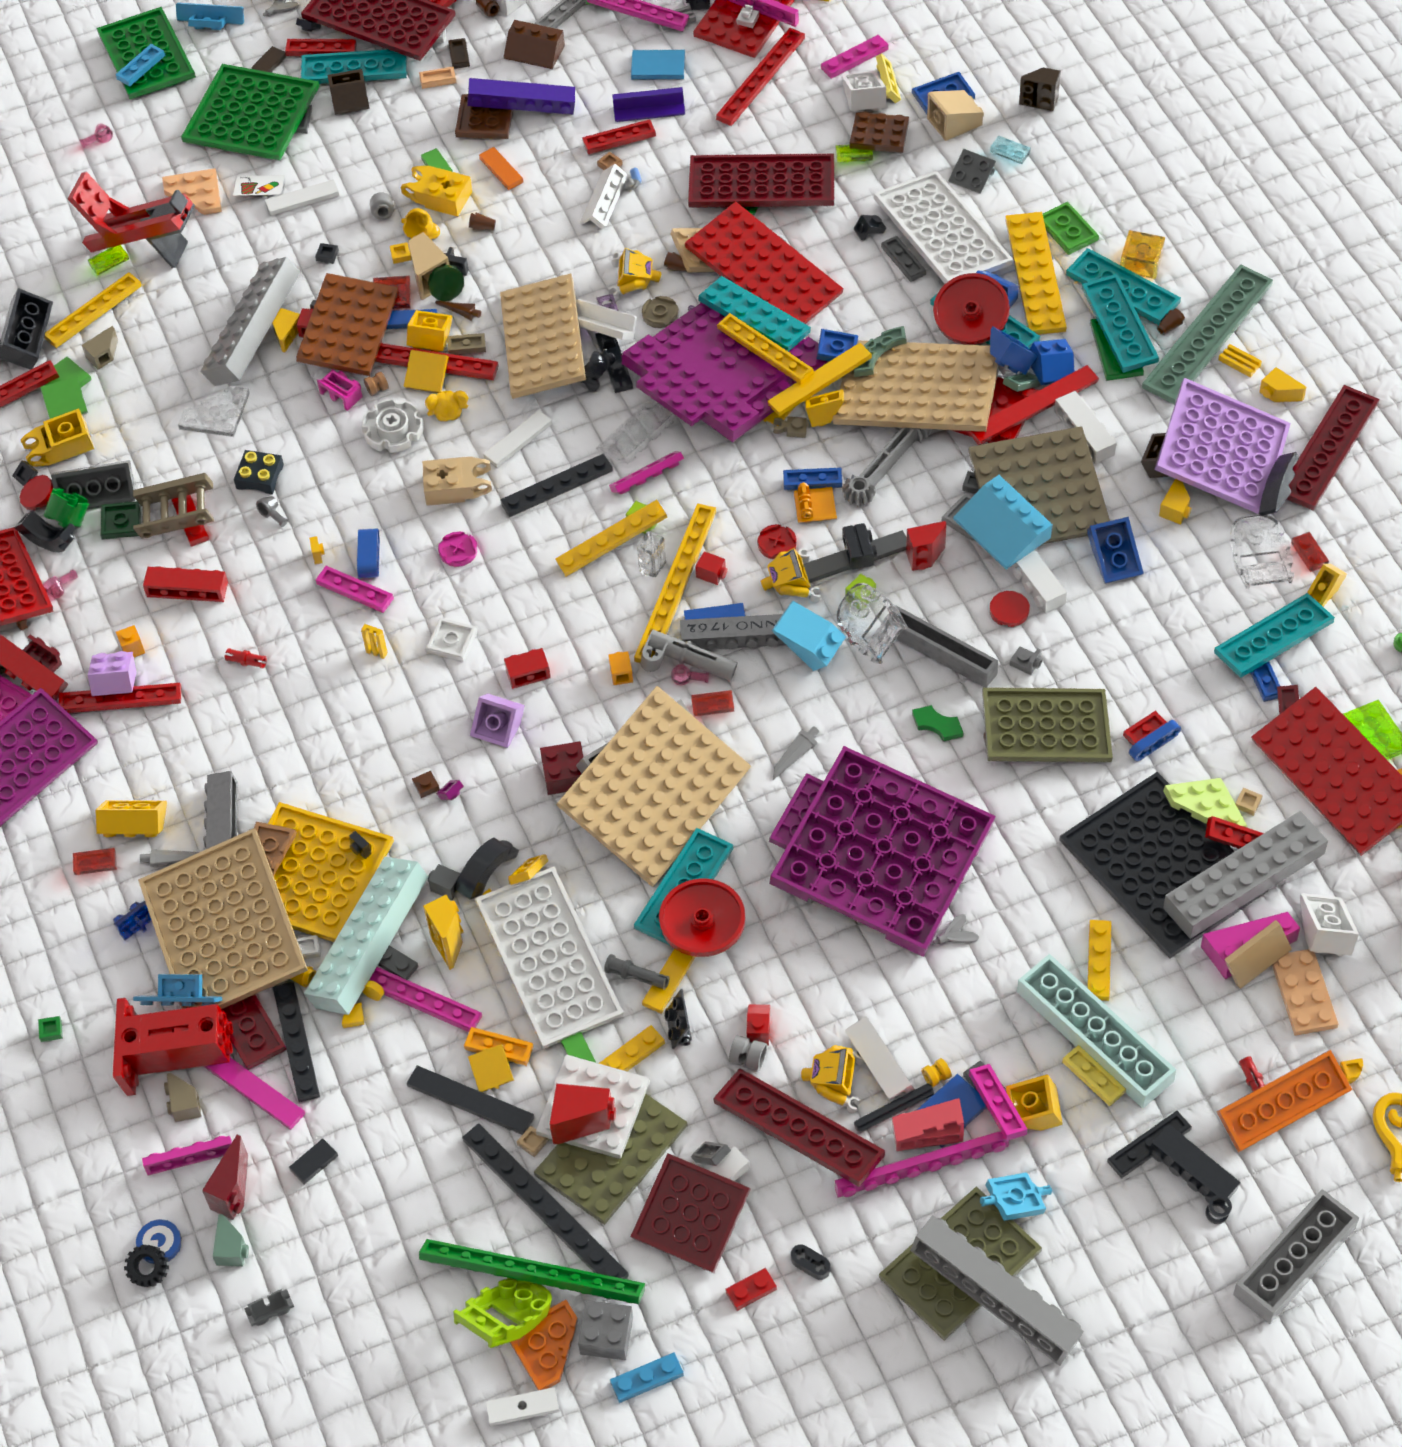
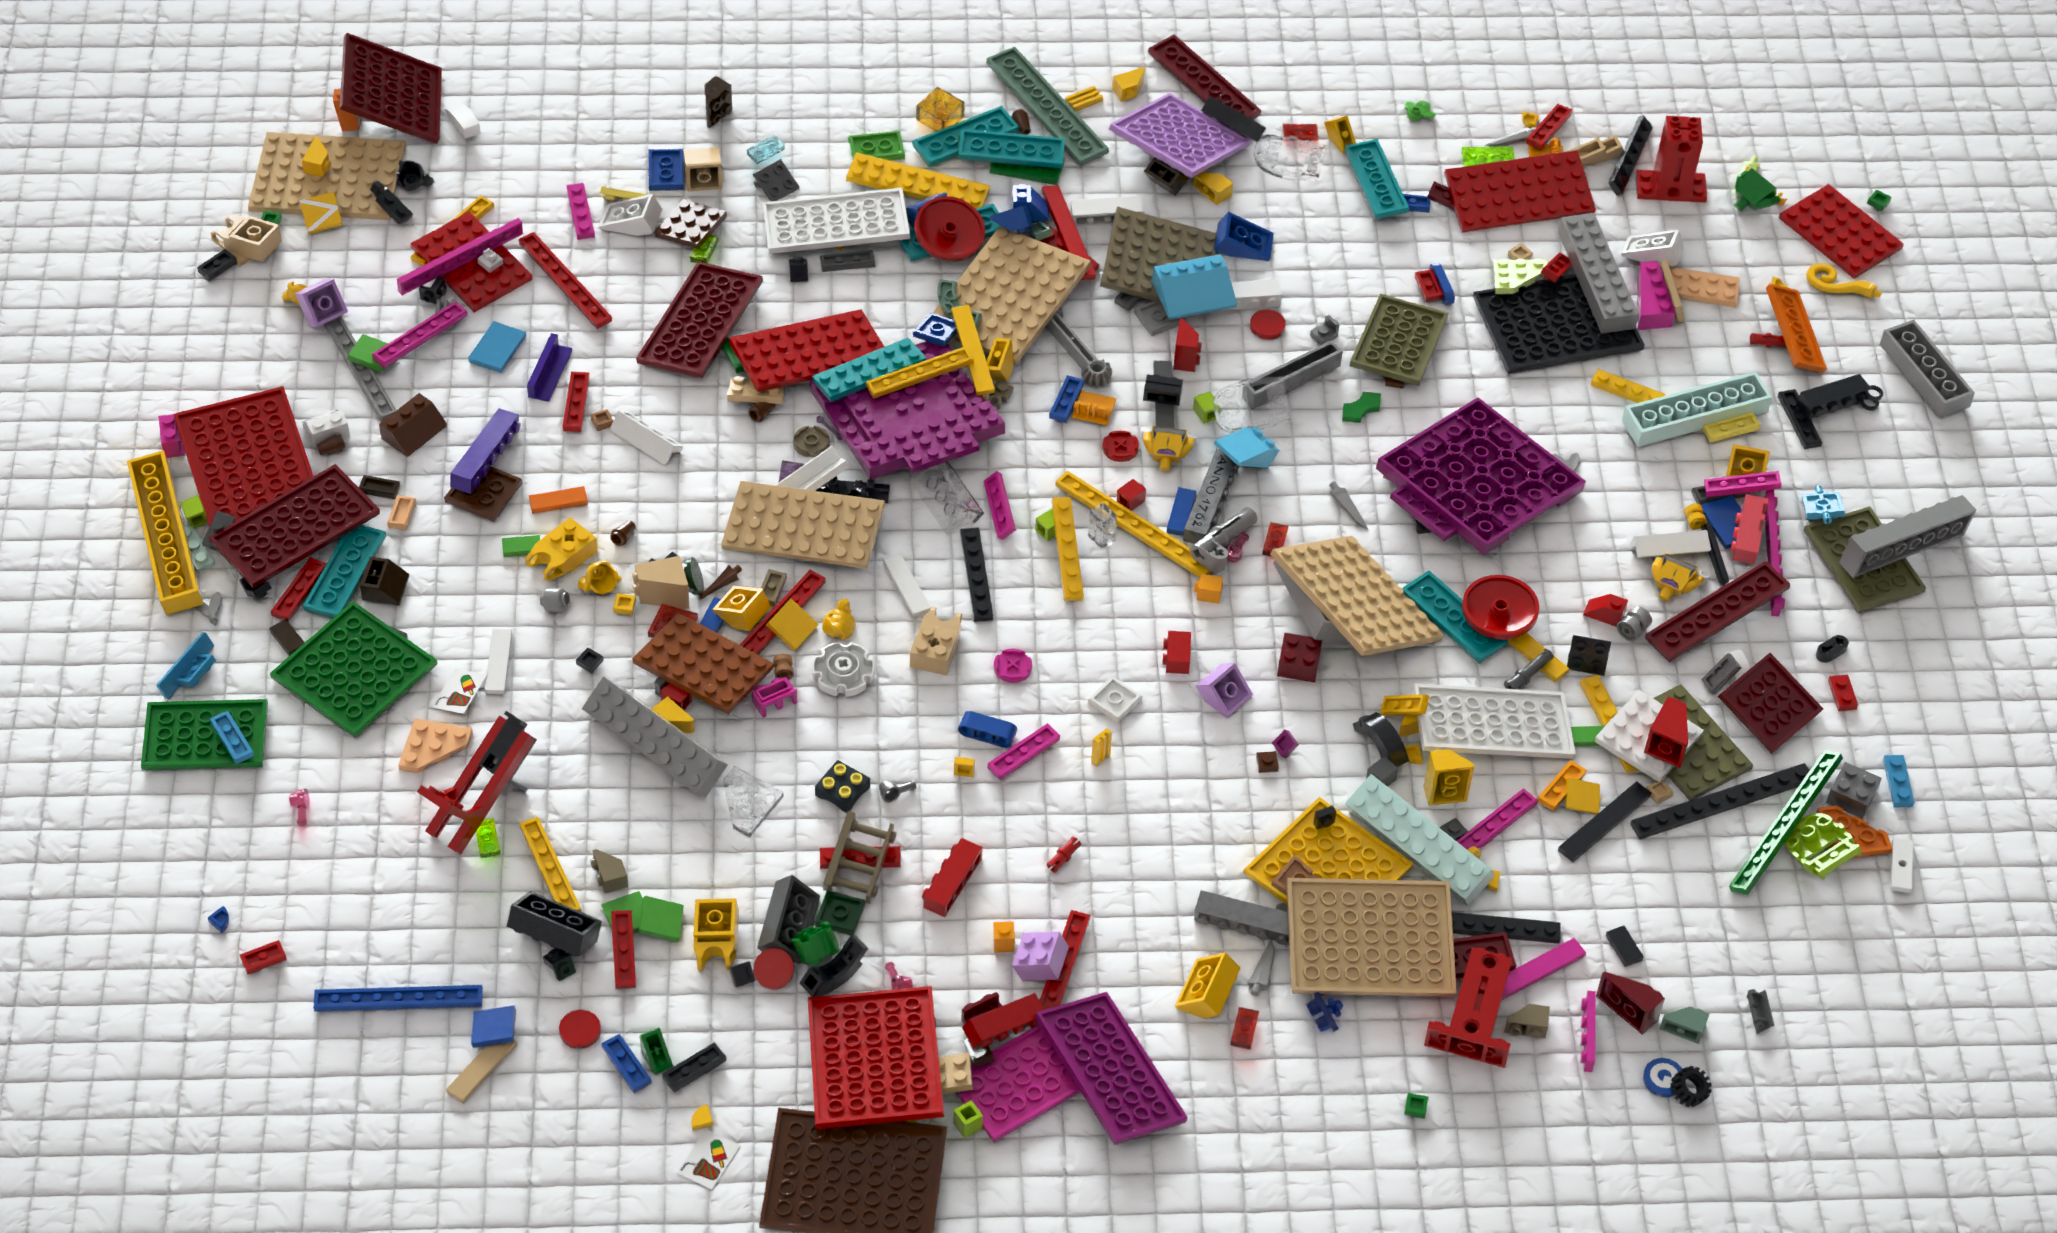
camera: 75 degrees left, 5 degrees down
(178, 988) = (1431, 984): dark azure bracket -> none
(633, 272) = (757, 438): yellow torso -> none
(635, 179) = (638, 408): arm -> none

